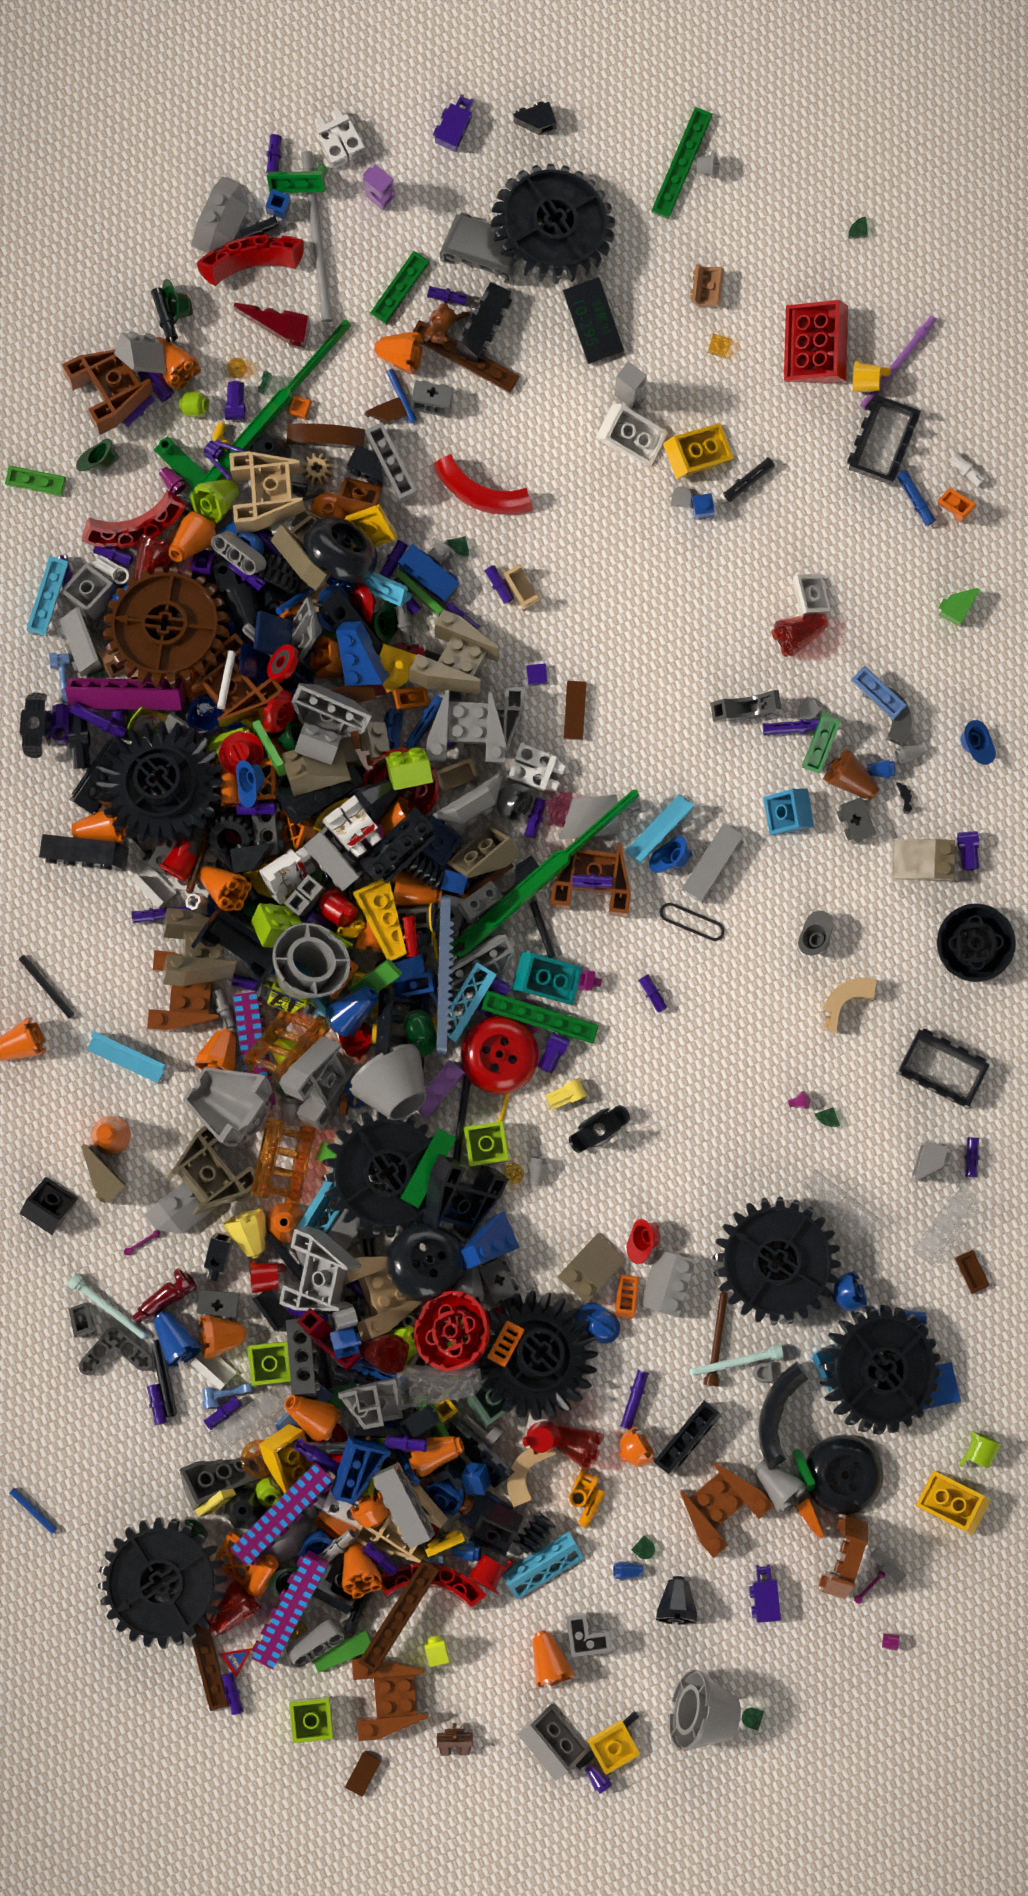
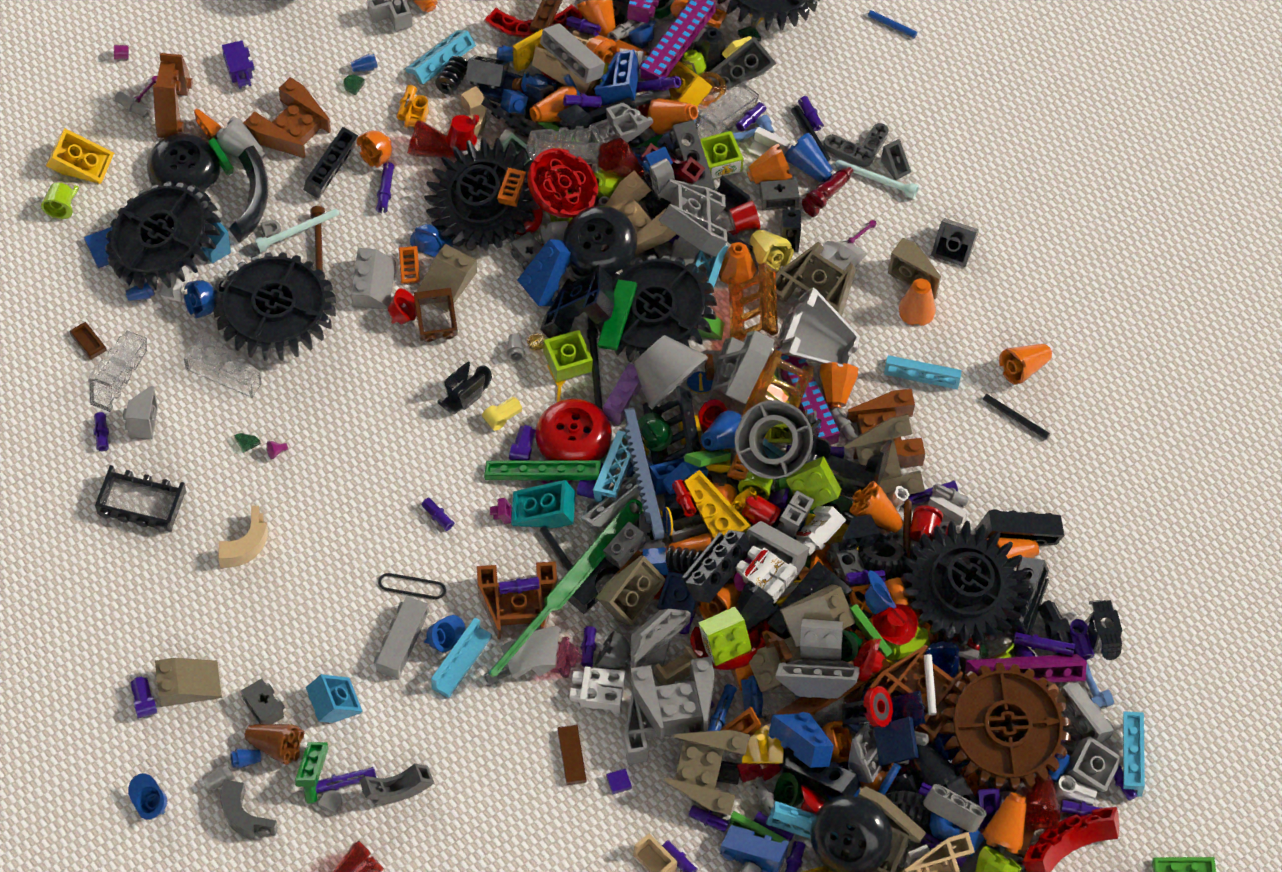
camera: 165 degrees right, 25 degrees down
(141, 903) = (950, 495): none -> light grey axle
(488, 1572) = (486, 39): red hat -> none
(612, 1242) = (435, 296): none -> reddish brown window
(677, 1603) = (315, 42): black cone -> none
(816, 933) = (286, 588): dark grey piece -> none
(878, 692) = (260, 821): medium blue tile -> none
(906, 796) = (215, 739): black piece -> none
(999, 942) = (120, 590): black brick -> none

